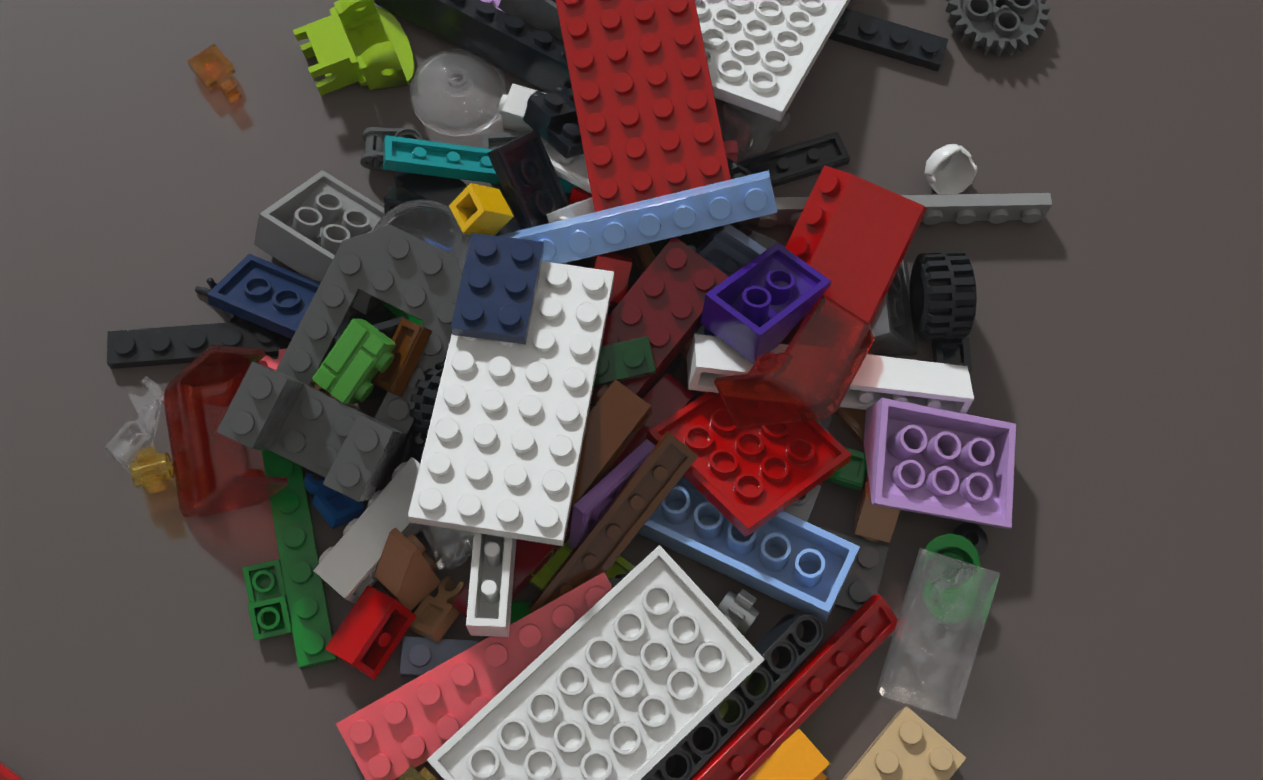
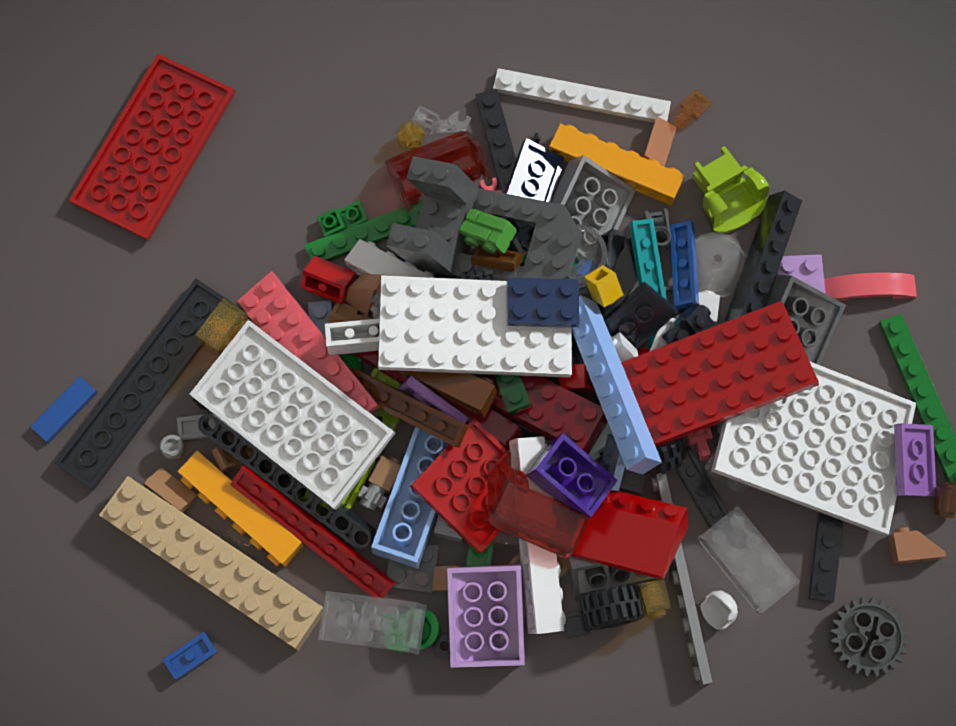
camera: 90 degrees right, 5 degrees up
(151, 219) = (581, 96): none -> white plate
(257, 126) = (660, 141): none -> nougat slope
(297, 158) = (641, 174): none -> light orange brick
(458, 120) = (684, 265): none -> blue plate
(709, 579) = (386, 473): none -> medium nougat brick
(887, 122) = (748, 560): none -> clear brick
(936, 235) = (655, 599): none -> clear yellow brick

